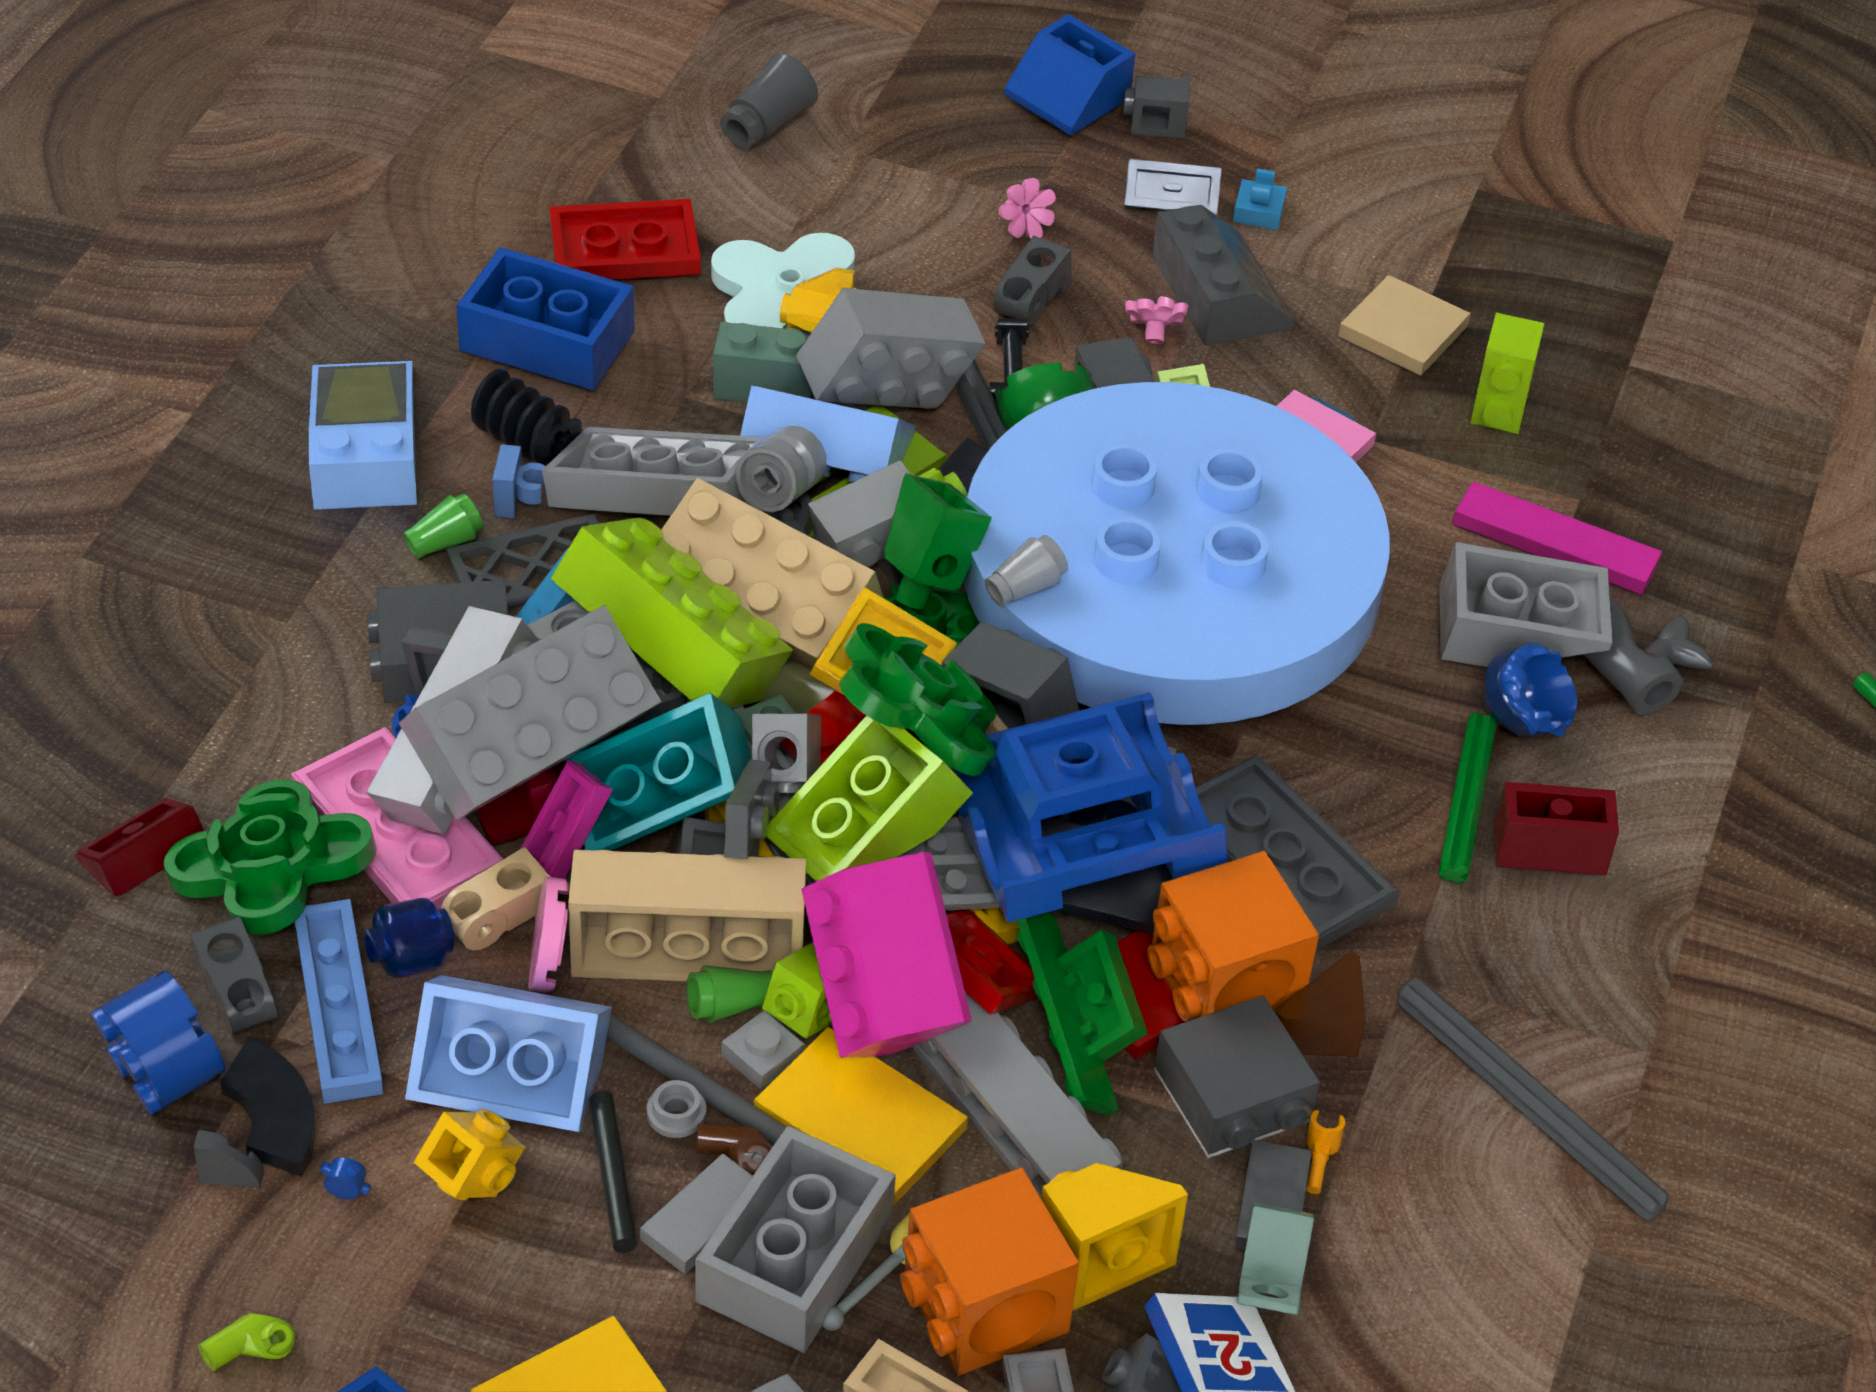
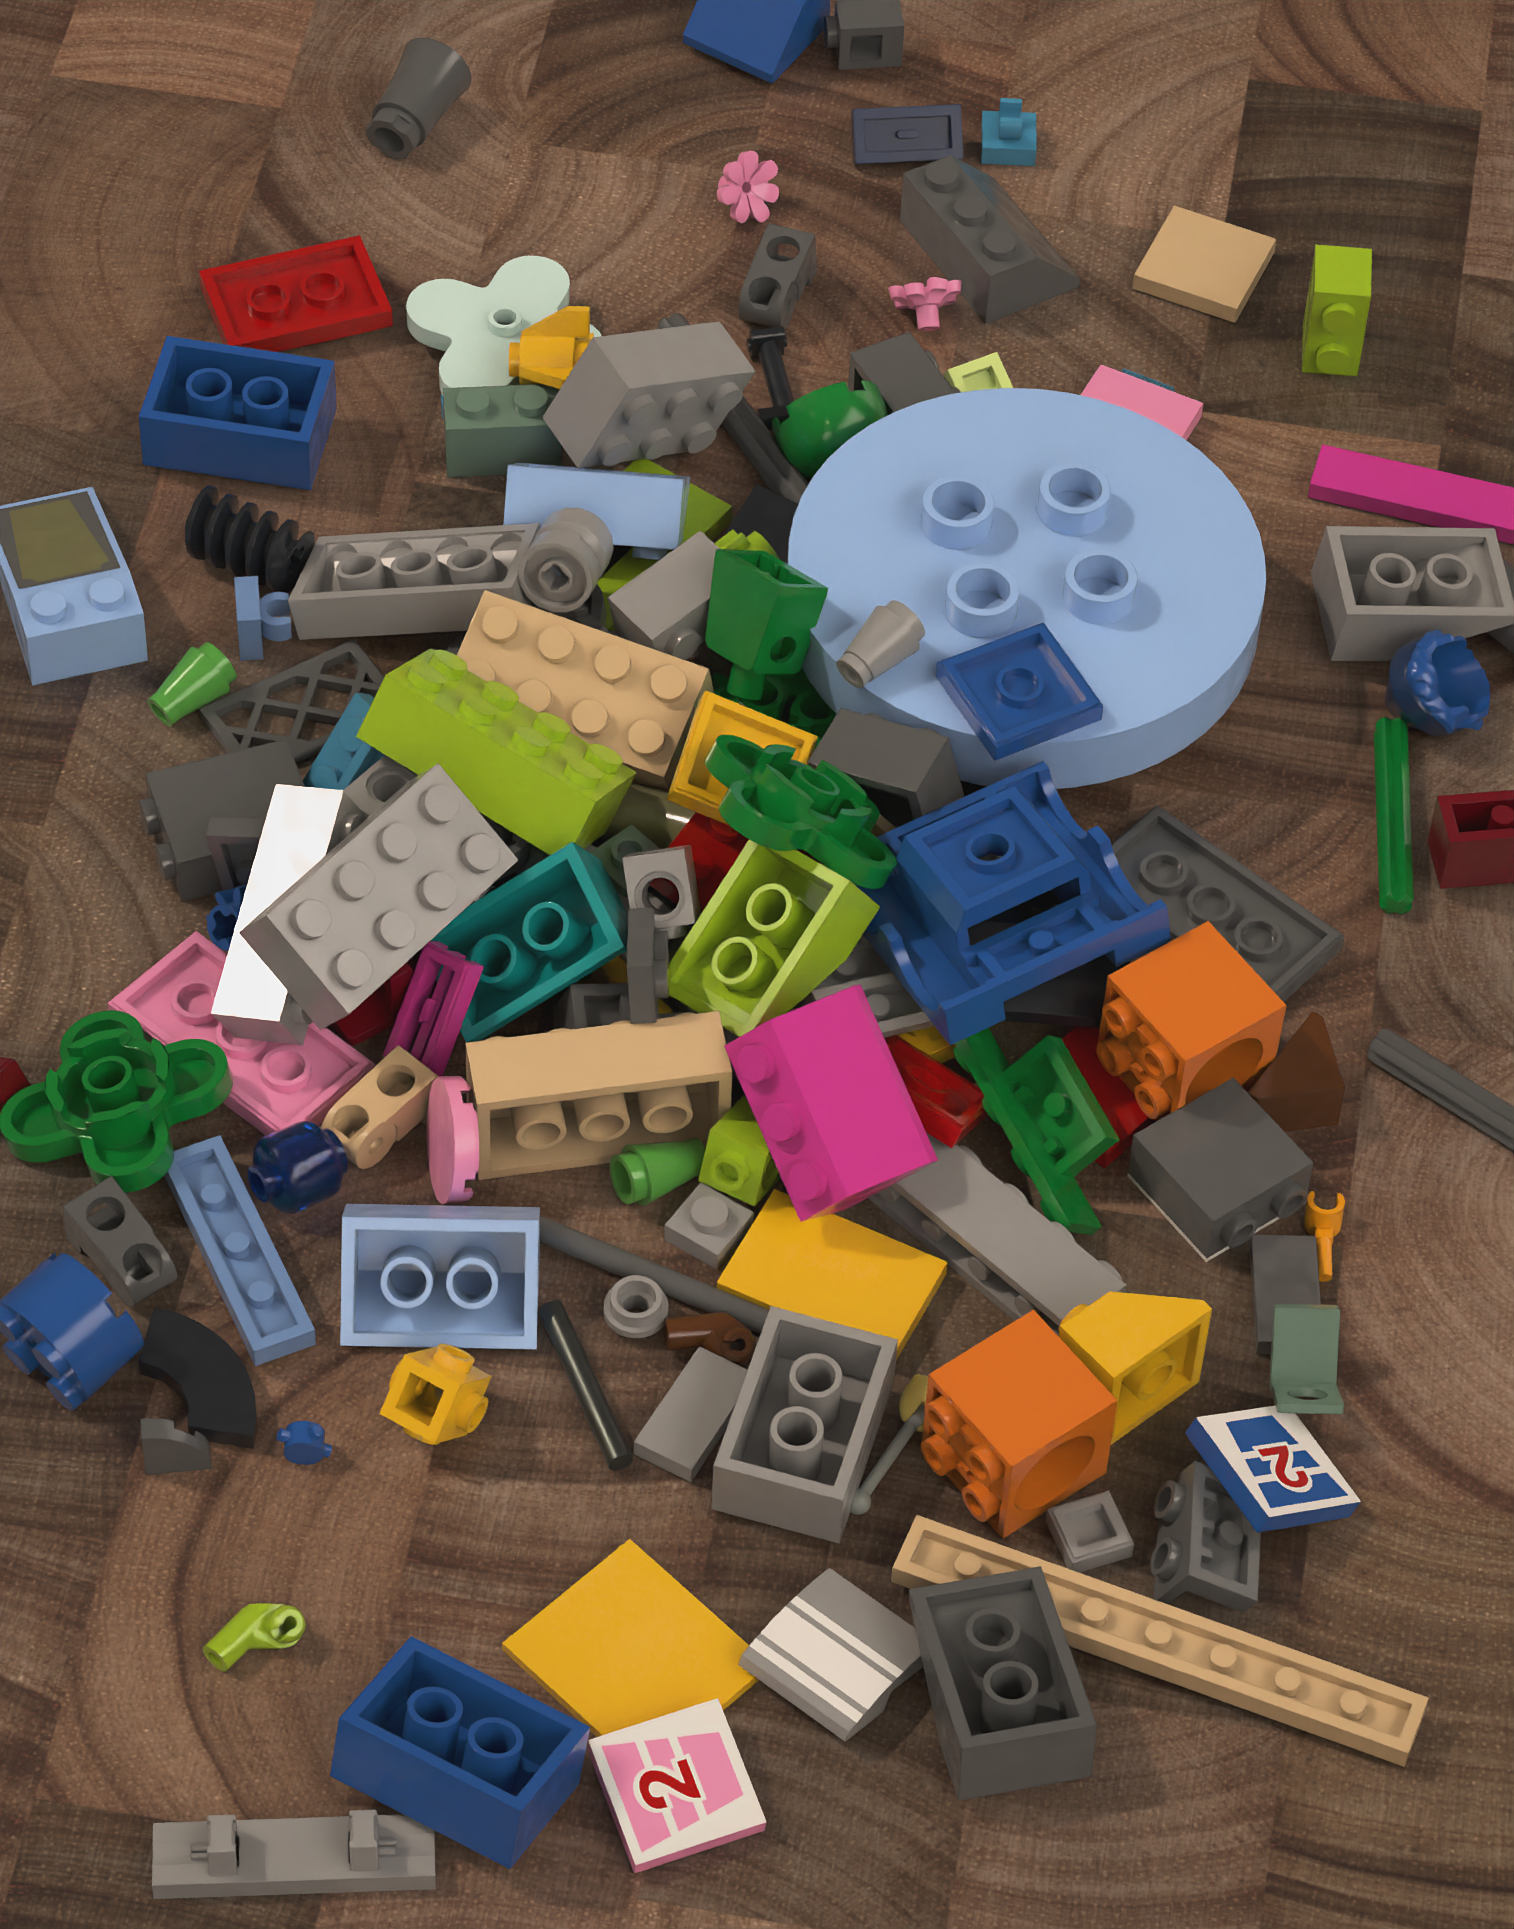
camera: 10 degrees left, 5 degrees up
(1141, 630) = (1019, 691): none -> blue tile

